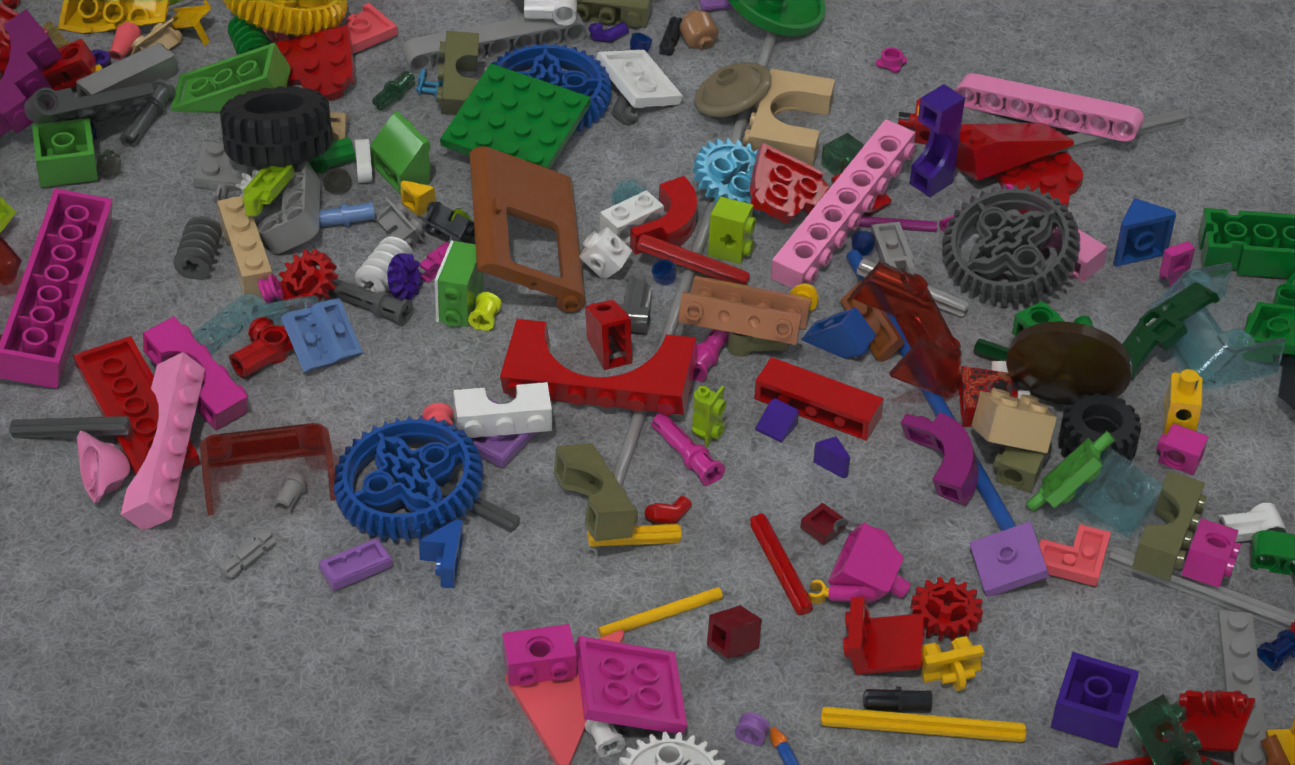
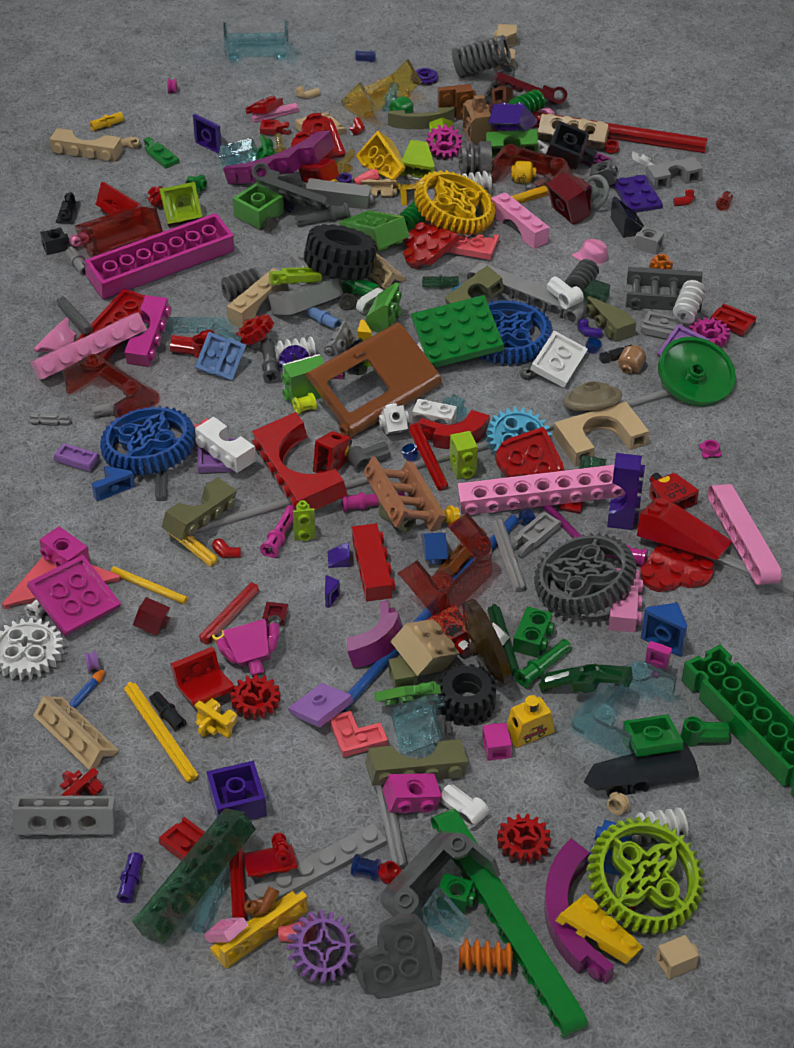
camera: 55 degrees right, 0 degrees up
(270, 289) = (229, 321): dark pink bush -> none

